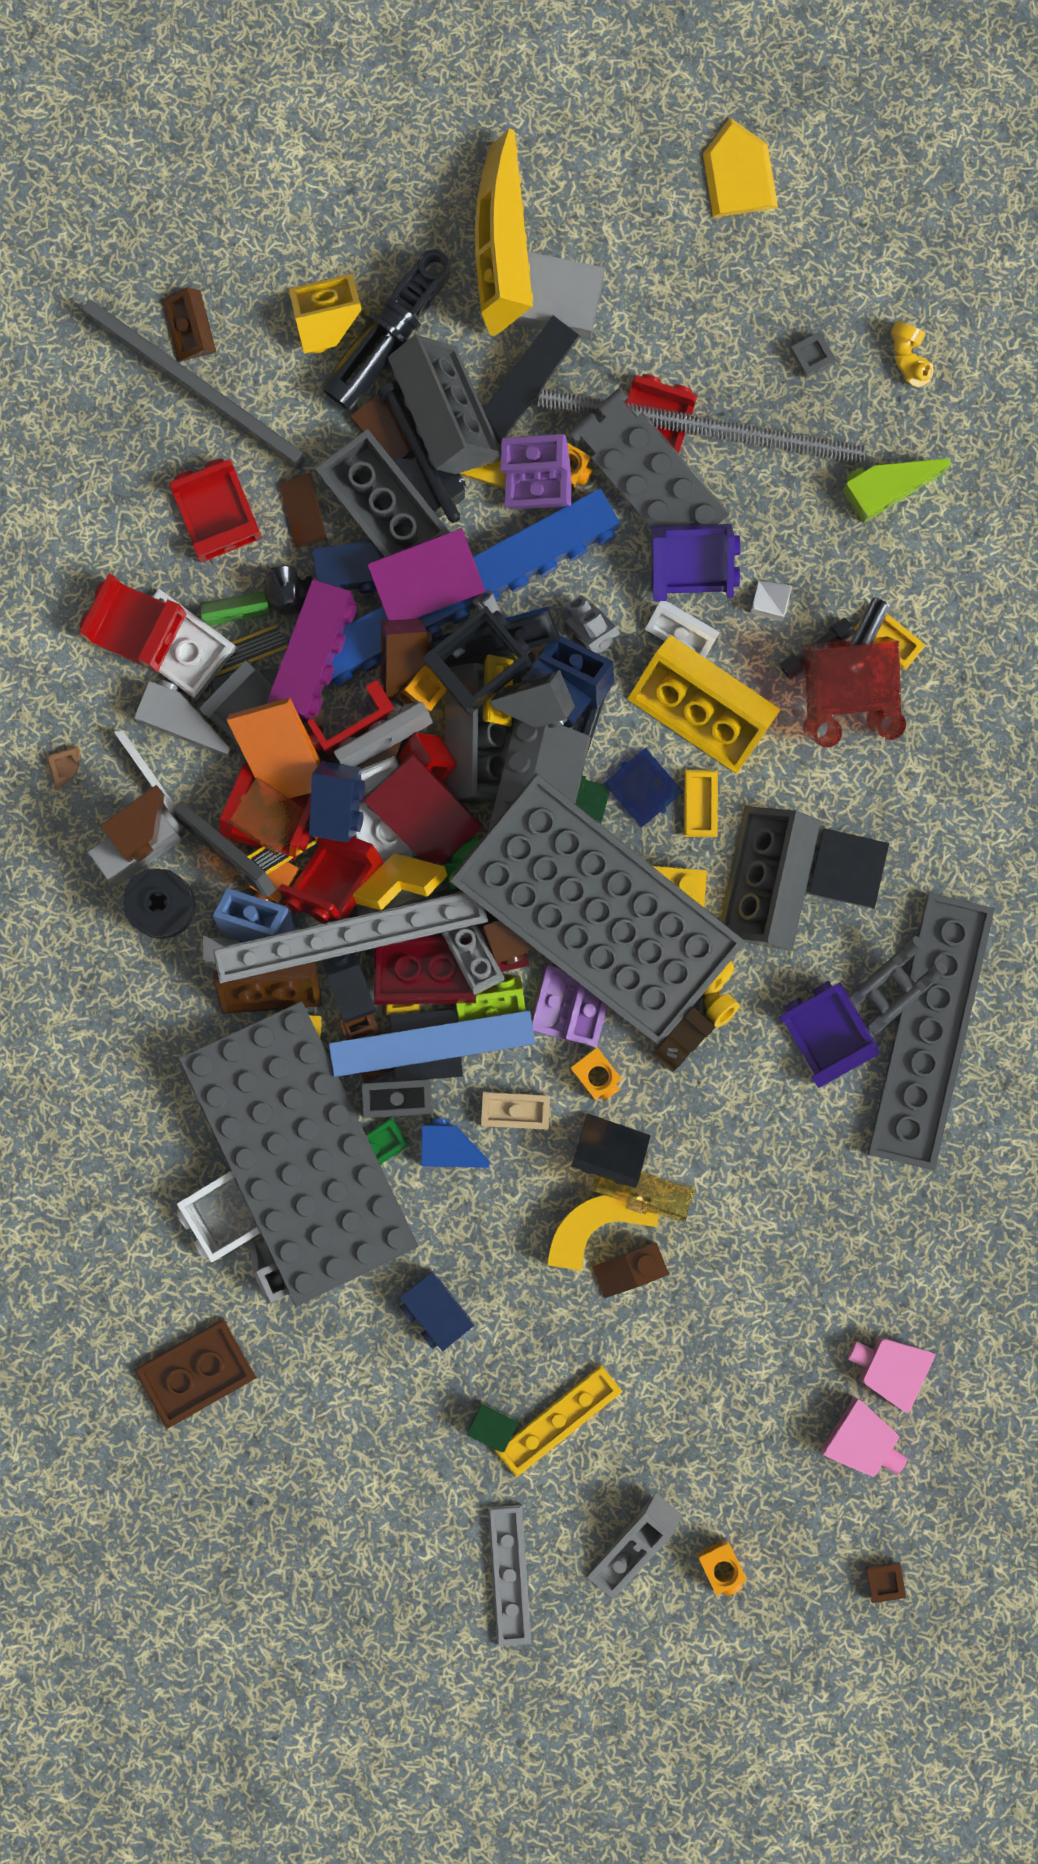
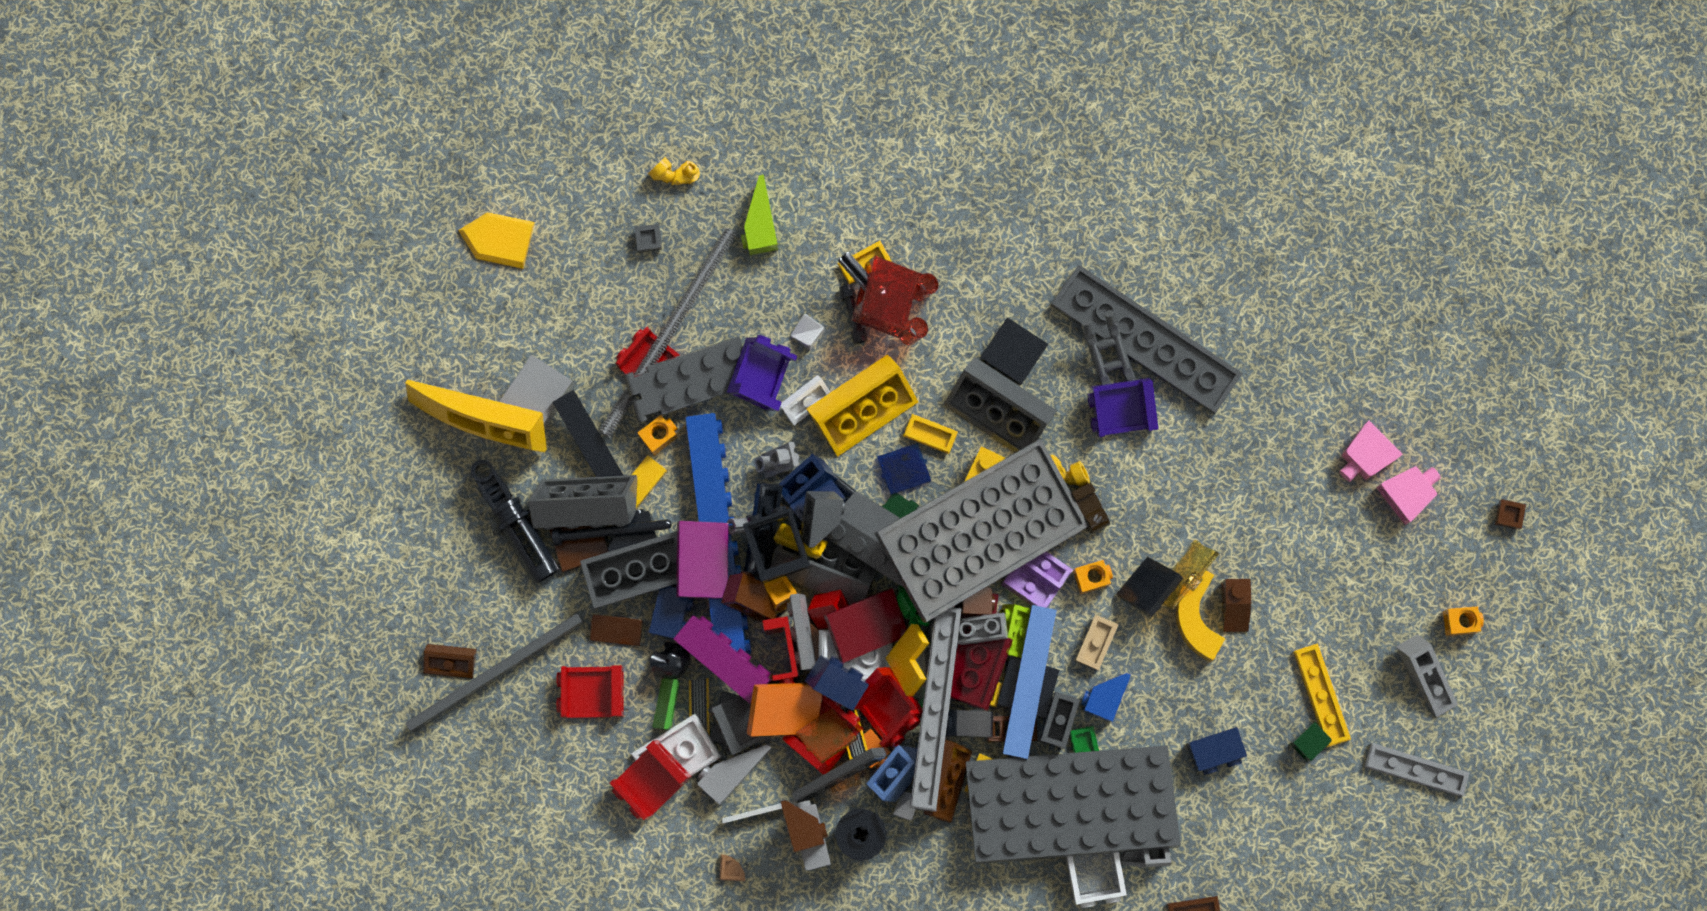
camera: 65 degrees left, 5 degrees down
(324, 311) = (480, 560): yellow slope -> none
(536, 471) = (657, 456): medium lavender slope -> none

